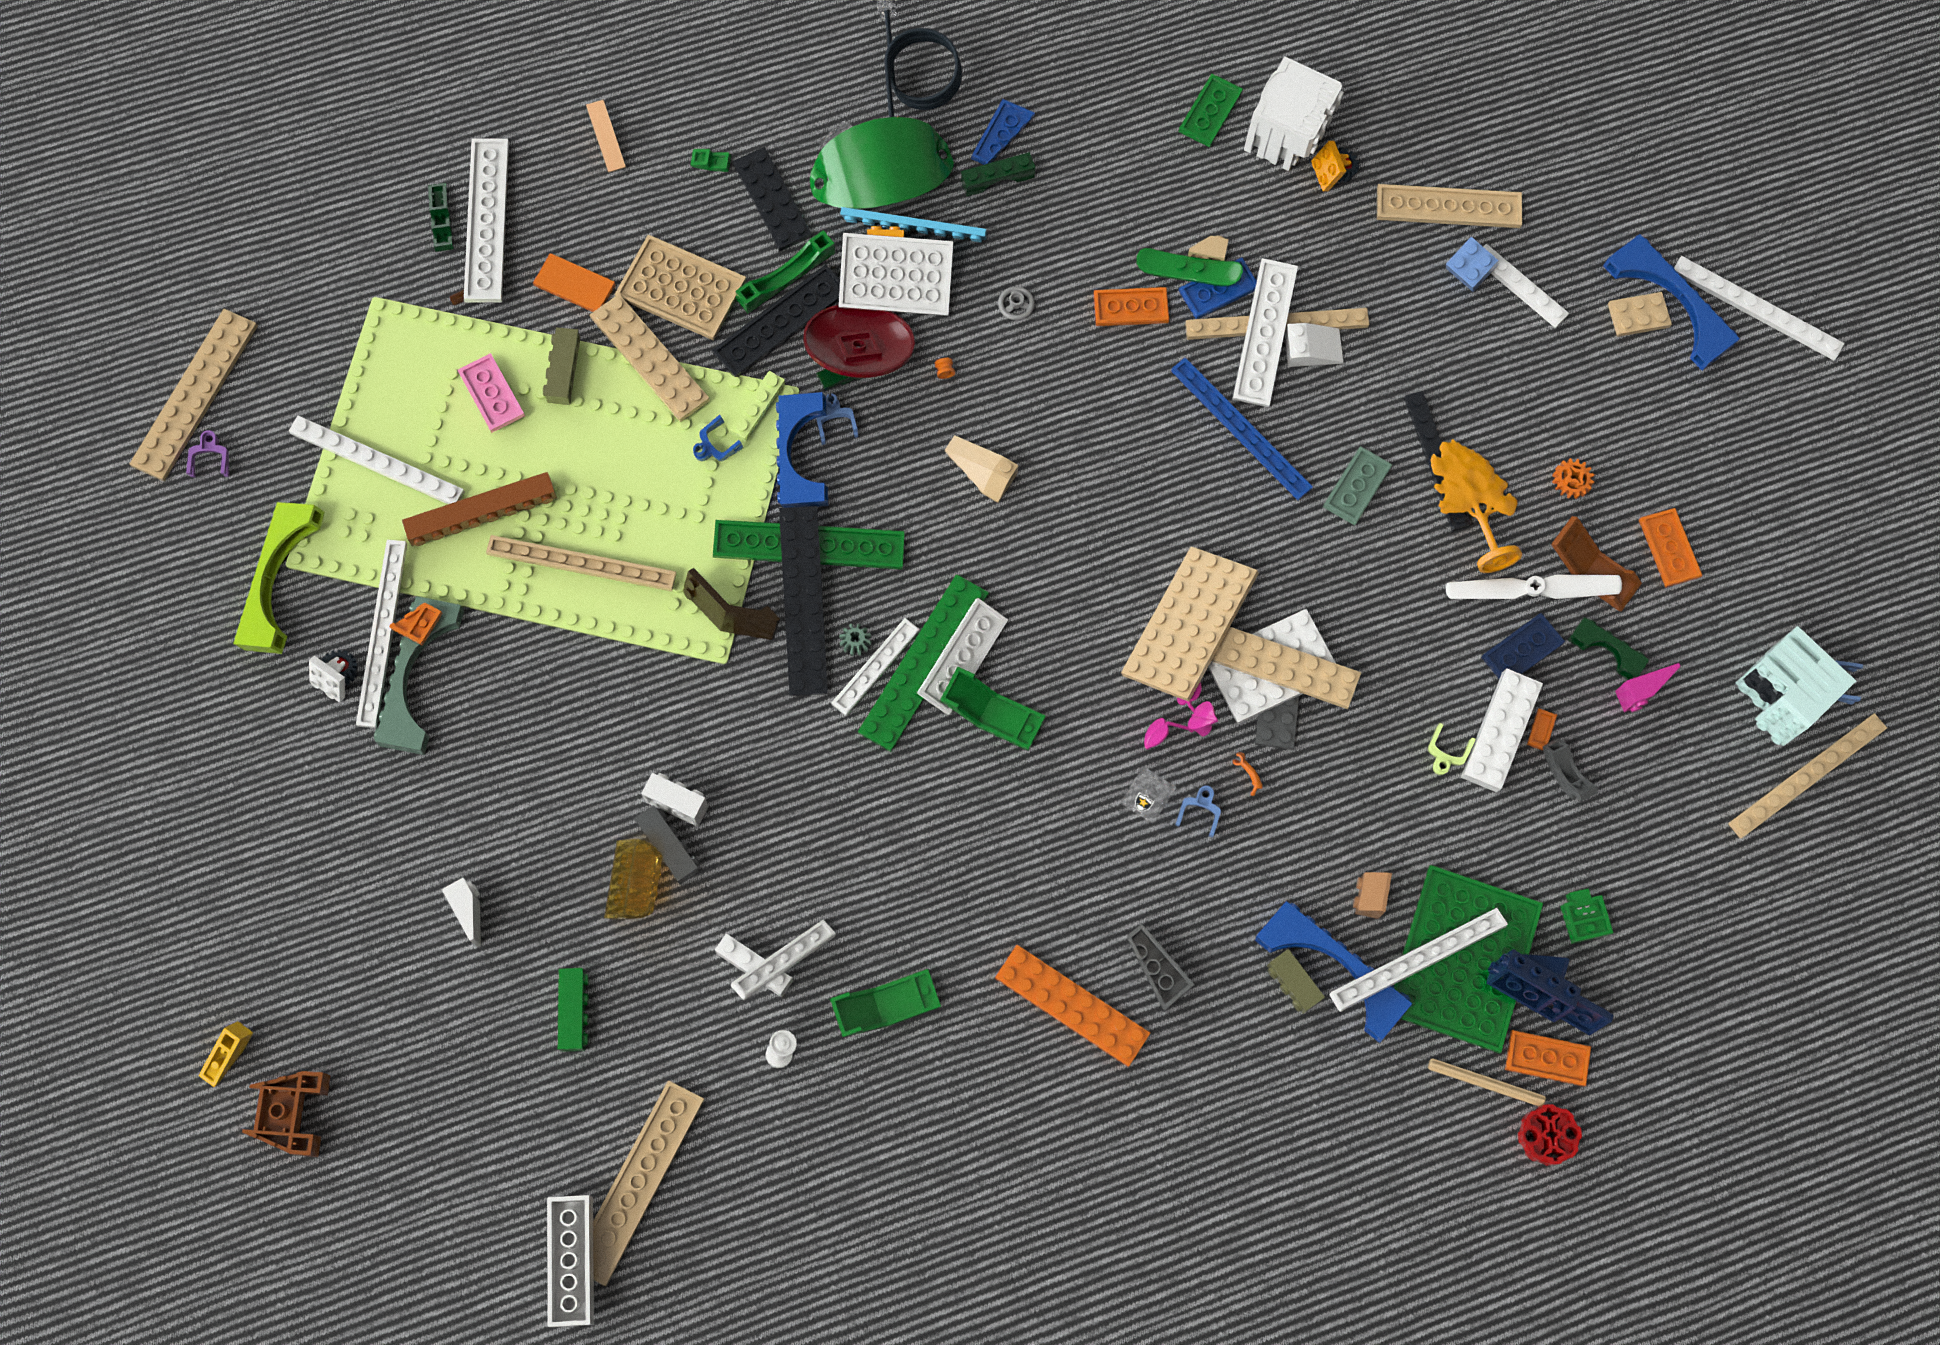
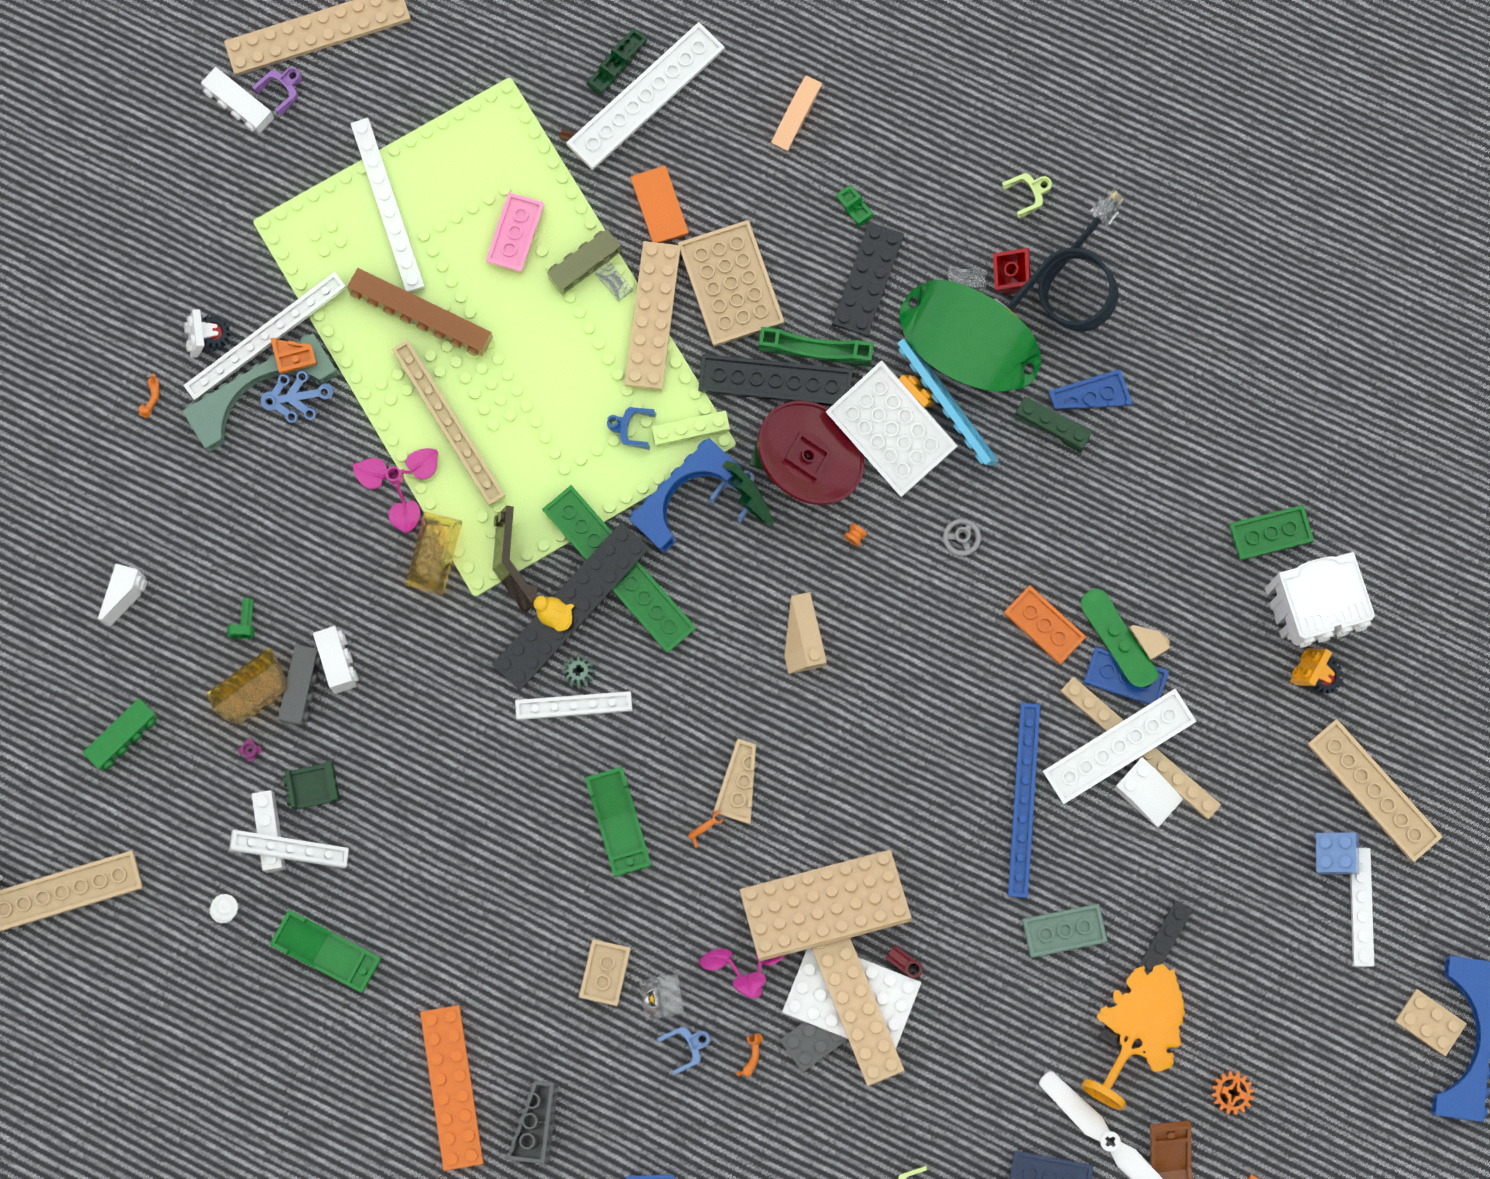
camera: 50 degrees right, 5 degrees up
(184, 494) = (237, 100): none -> white brick
(287, 528) = (277, 196): lime arch -> none
(332, 747) = (153, 383): none -> orange piece
(448, 654) = (293, 396): none -> medium blue plant
(584, 848) = (245, 629): none -> green piece
(590, 609) = (372, 471): none -> dark pink plant
(597, 360) = (613, 281): none -> clear tile
(666, 661) = (433, 553): none -> clear yellow windscreen
(678, 930) = (246, 746): none -> magenta plate
(751, 904) = (311, 786): none -> dark green panel
(798, 613) = (553, 612): none -> yellow hair
(820, 36) = (1036, 188): none -> yellowish green piece
(848, 405) = (751, 497): none -> dark green slope
(865, 99) = (1011, 270): none -> red slope
(900, 697) = (610, 737): green plate -> none
(964, 650) = (645, 758): white plate -> none
(1045, 606) = (737, 788): none -> tan wing
(1054, 655) = (705, 826): none -> orange piece
(1092, 819) = (604, 972): none -> tan plate
(1279, 608) = (902, 961): none -> dark red piece

